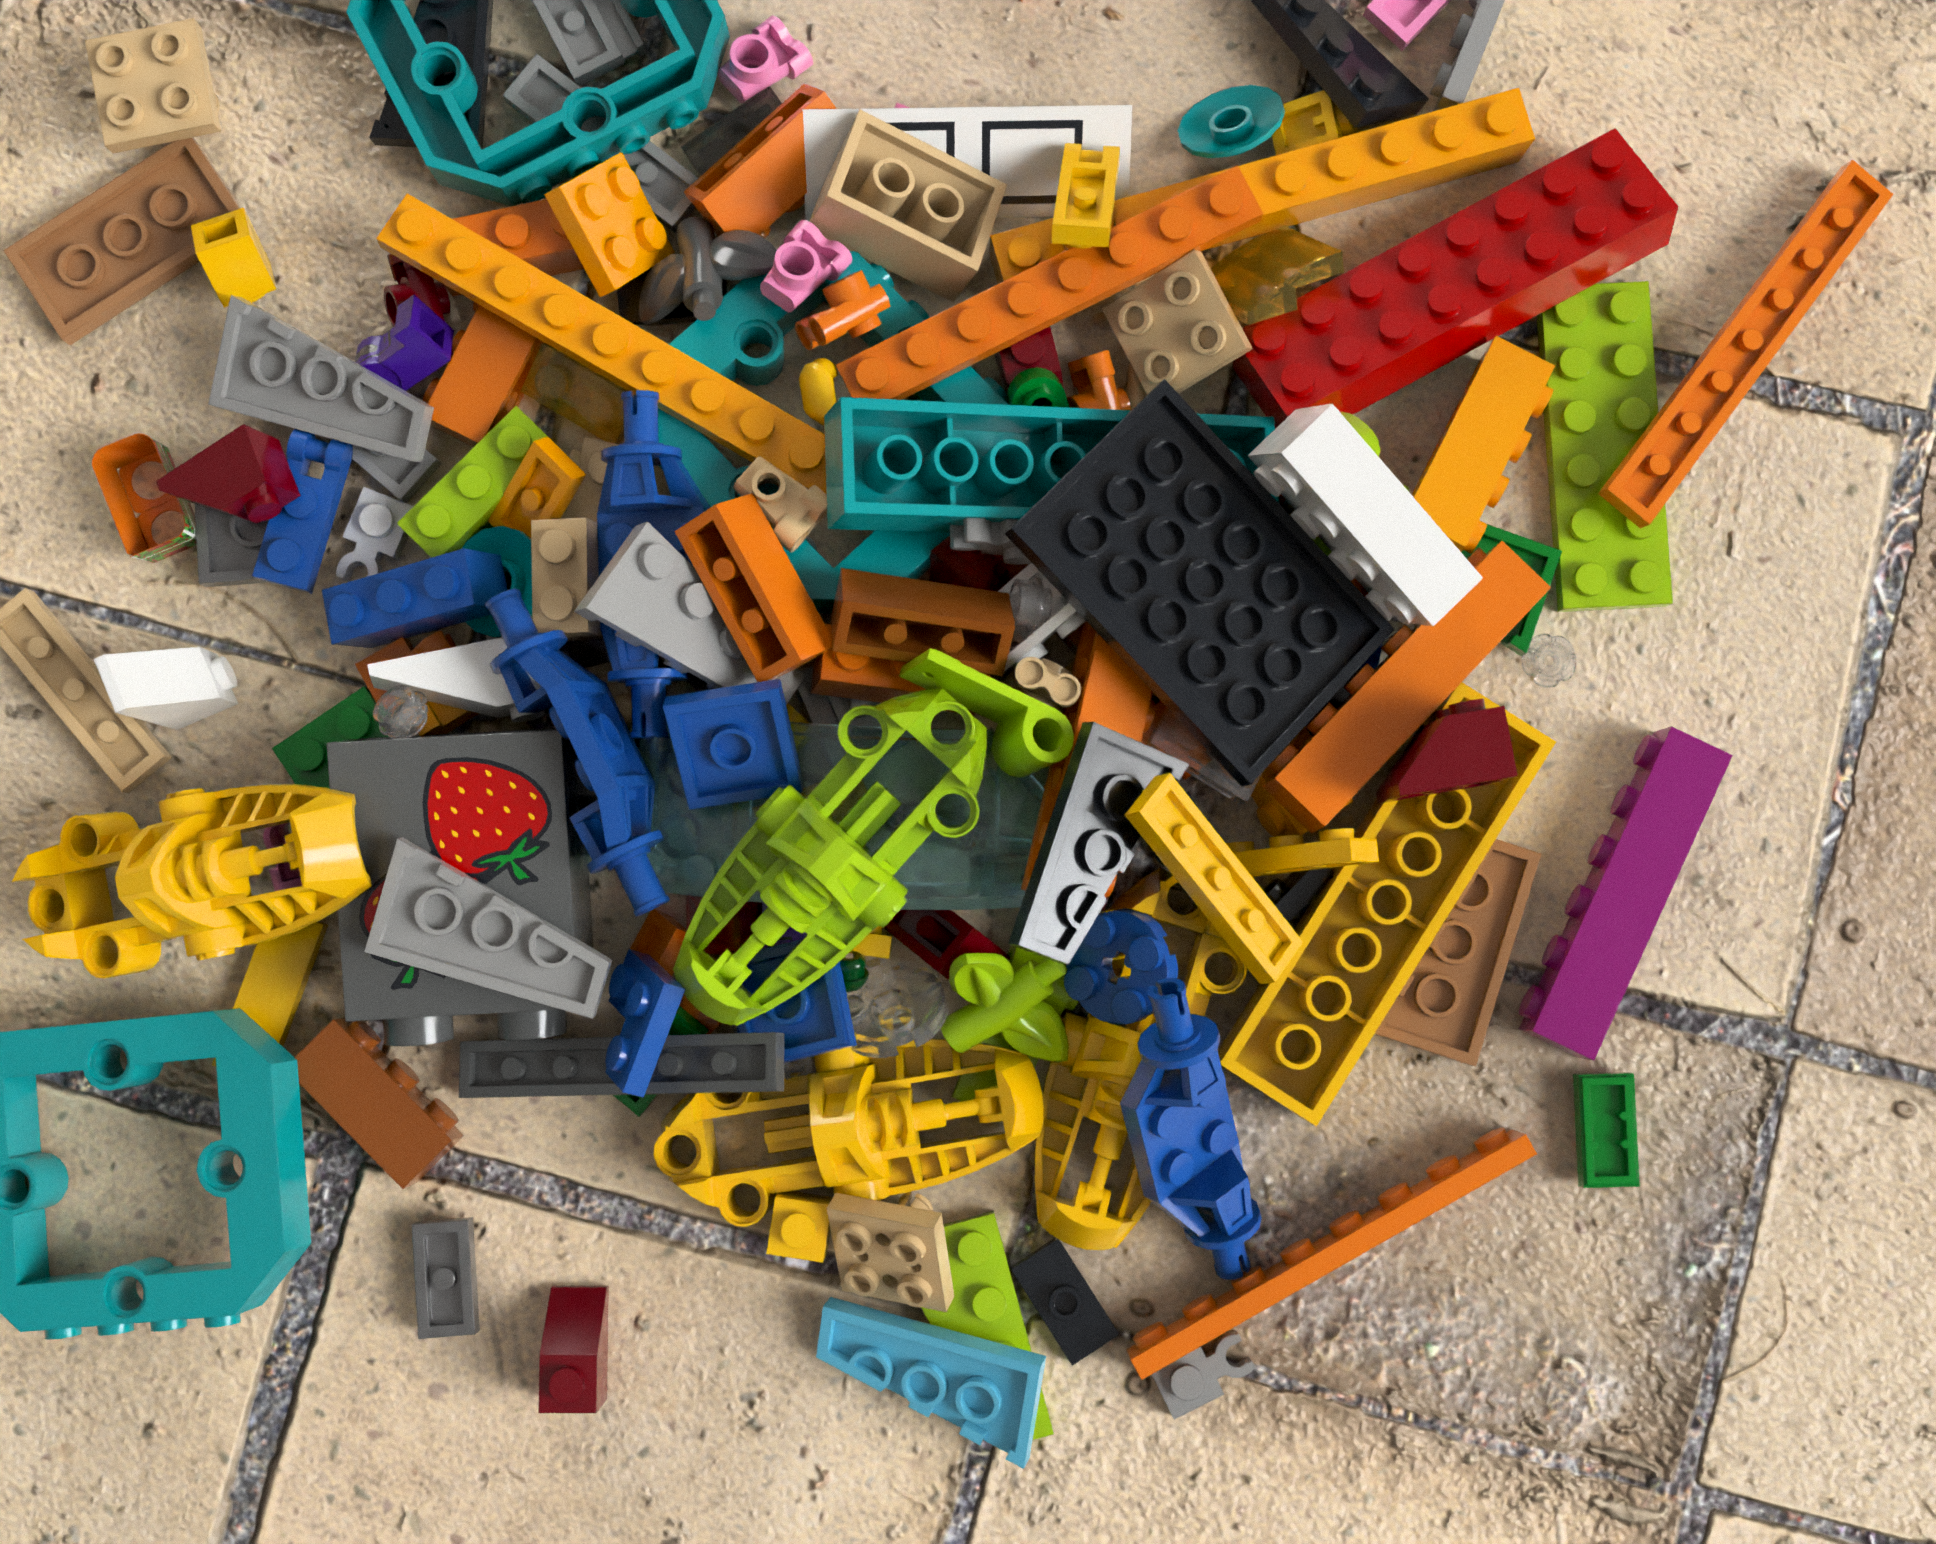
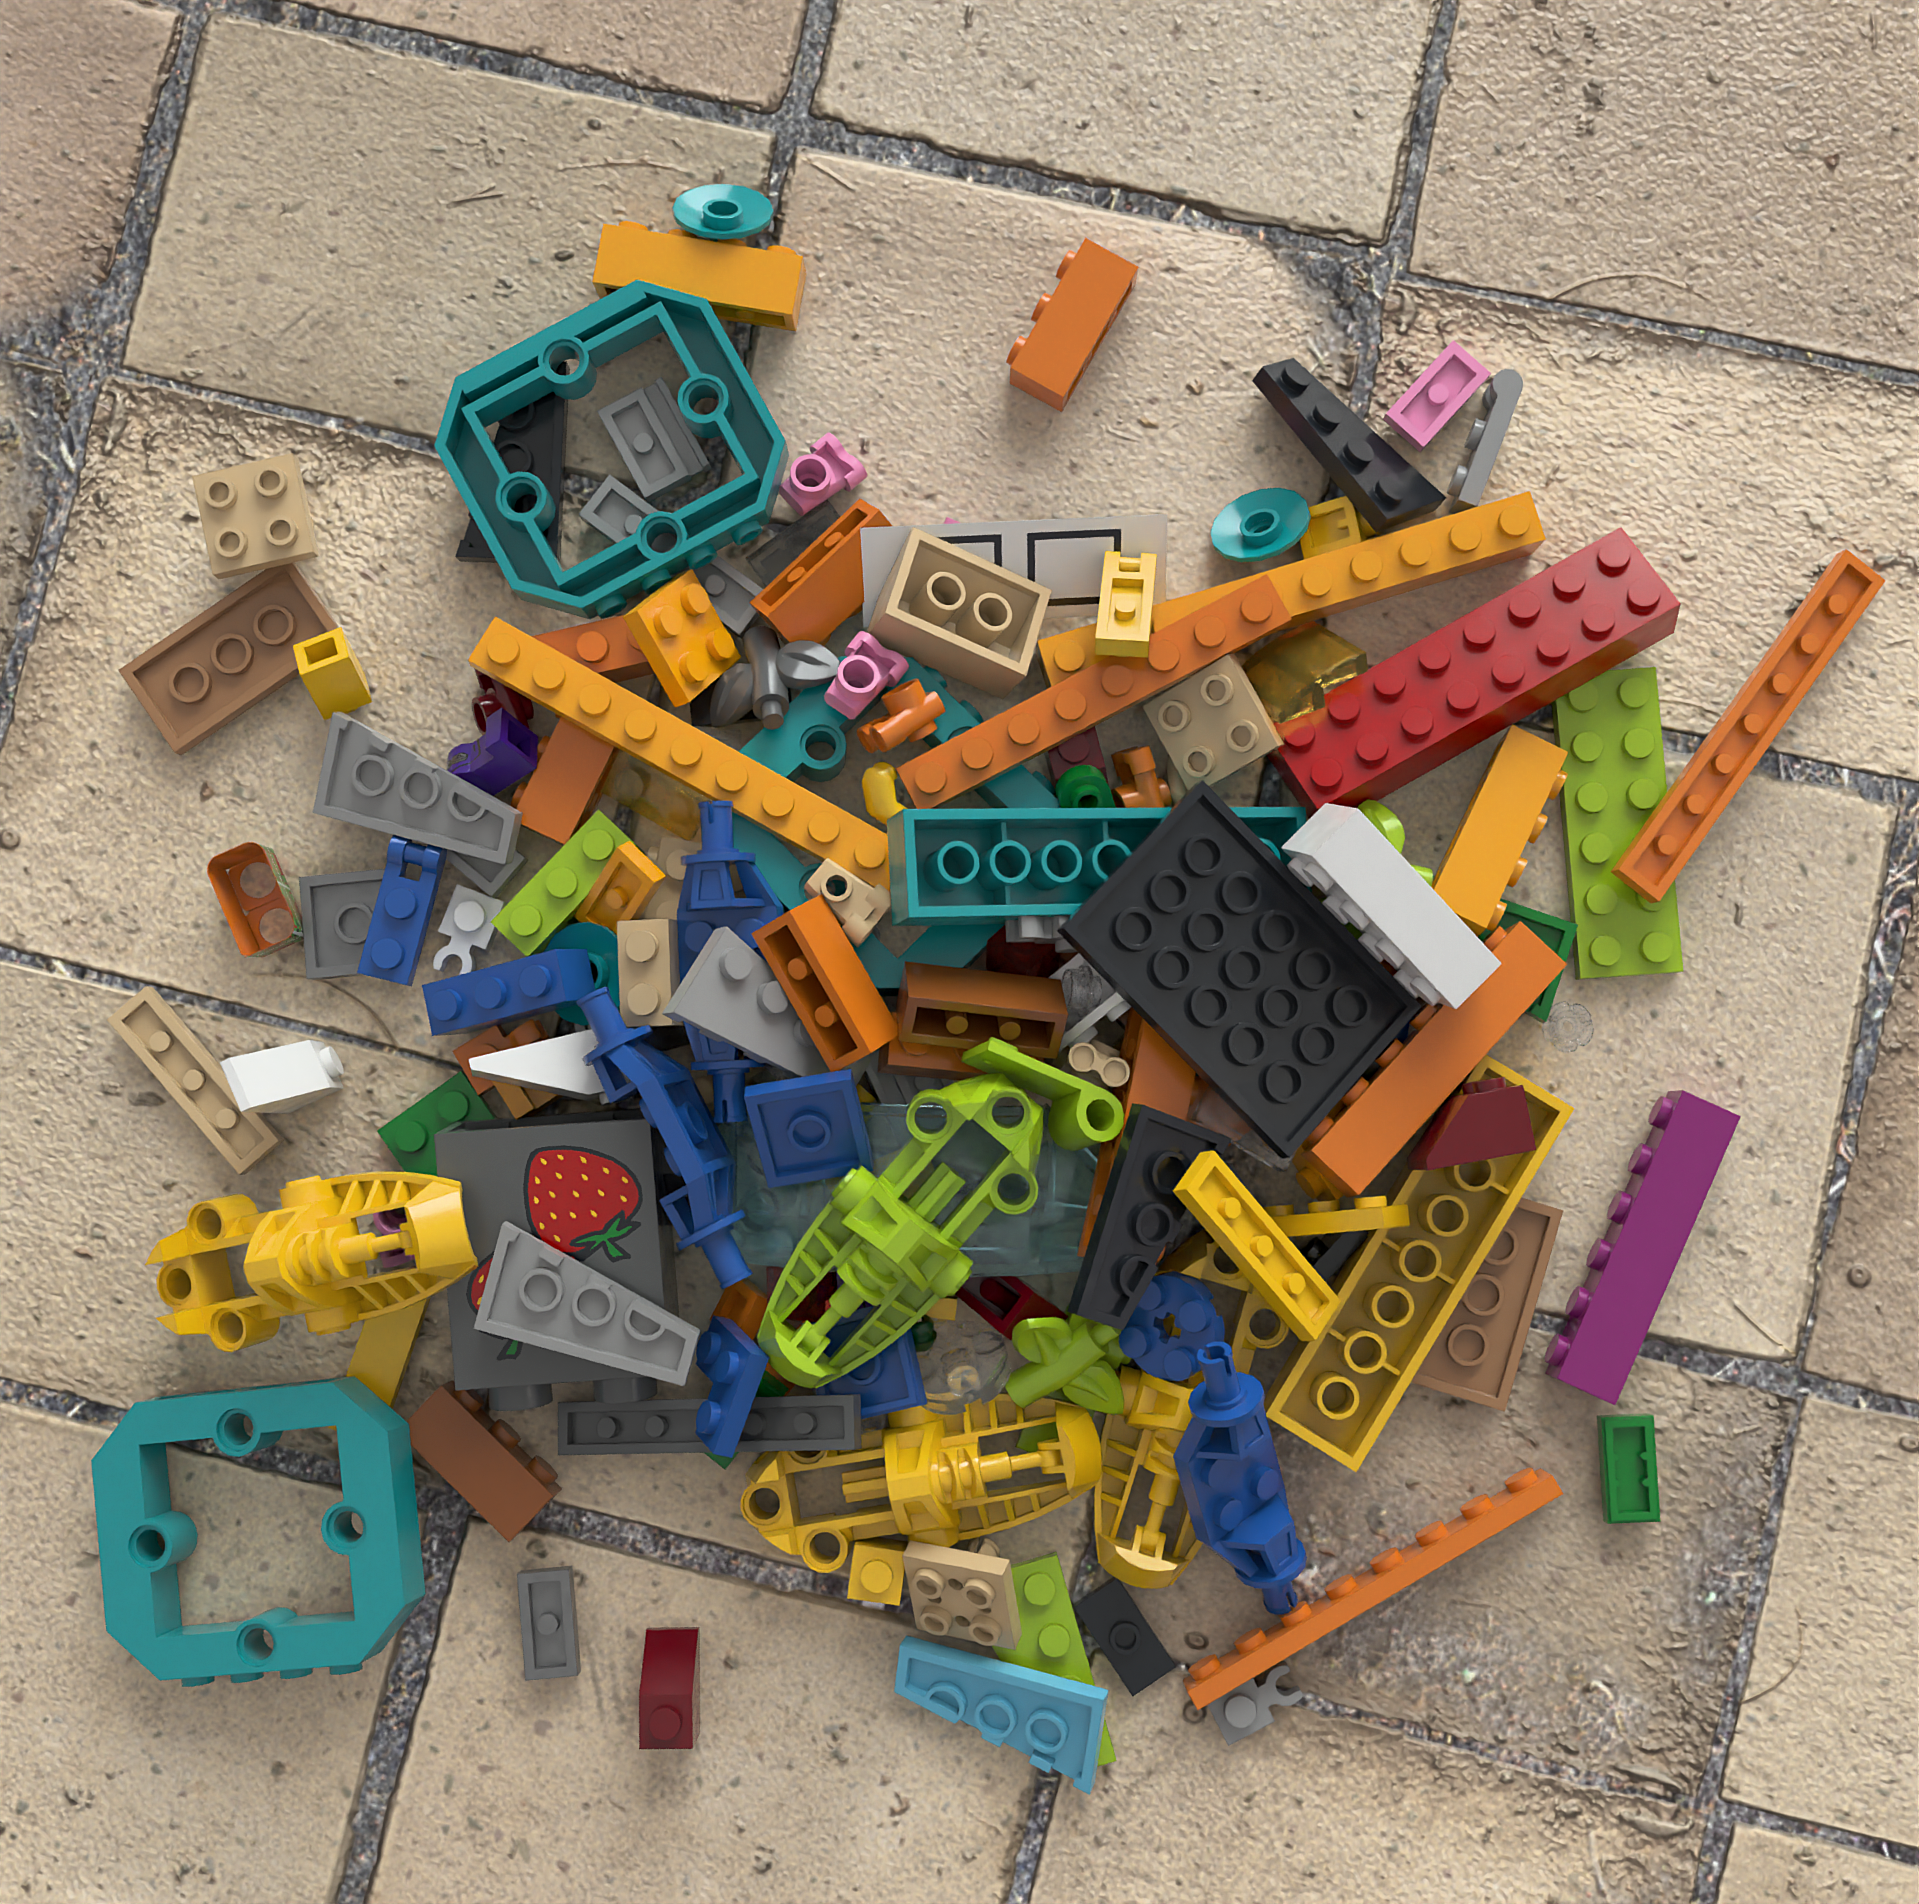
camera: 10 degrees right, 0 degrees up
(237, 476) = (342, 883): dark red slope -> none
(401, 712) = (500, 1102): clear plate -> none

